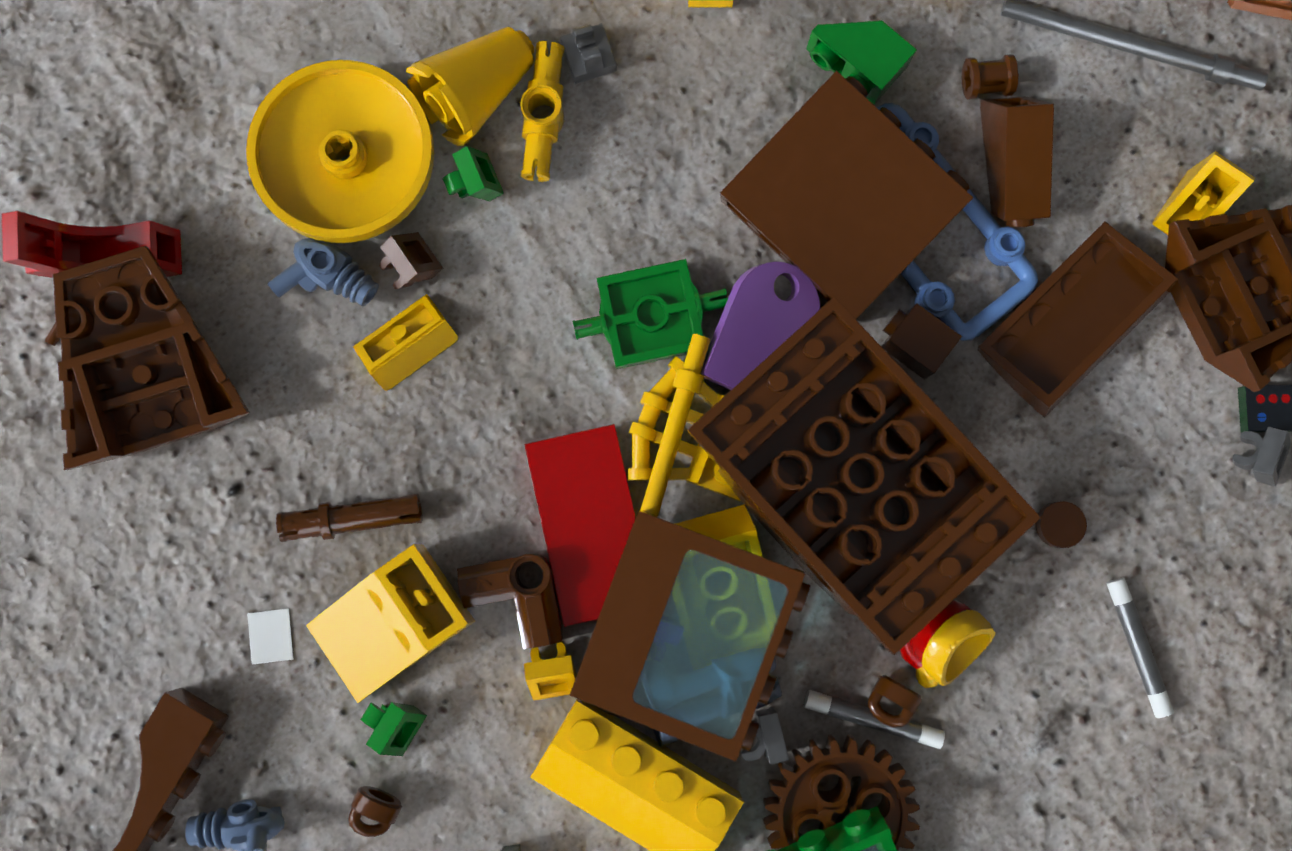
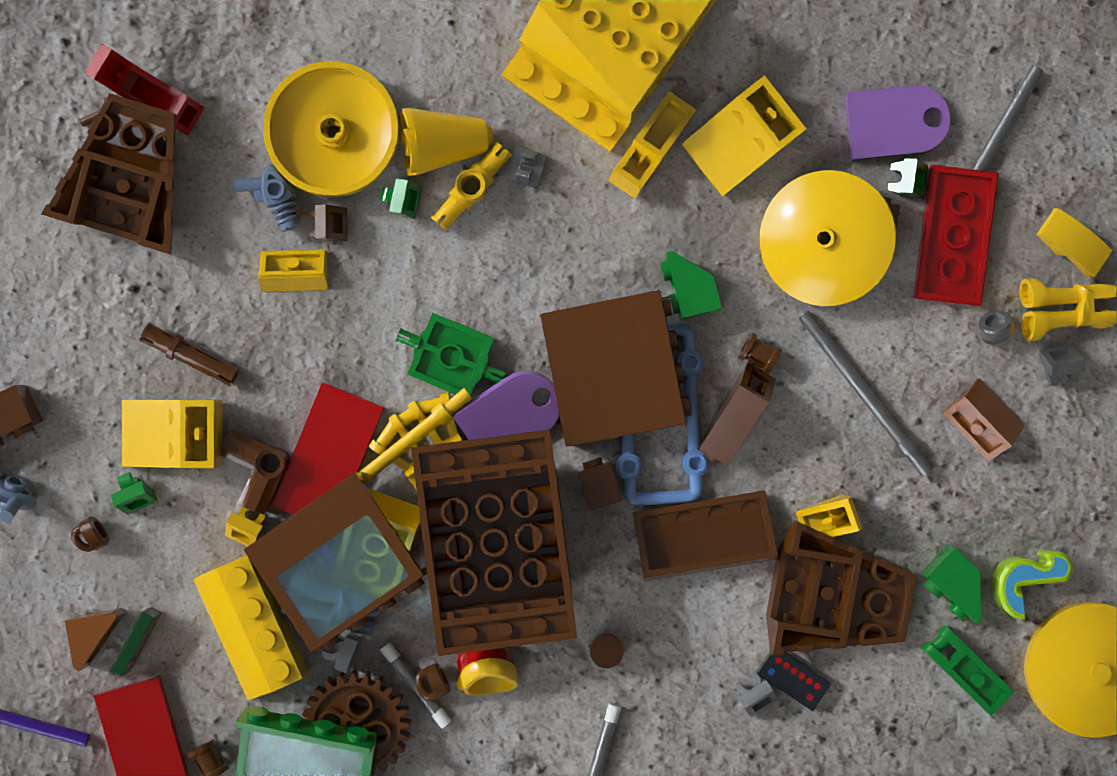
camera: 30 degrees right, 5 degrees up
(270, 636) = (97, 391): white sticker -> none

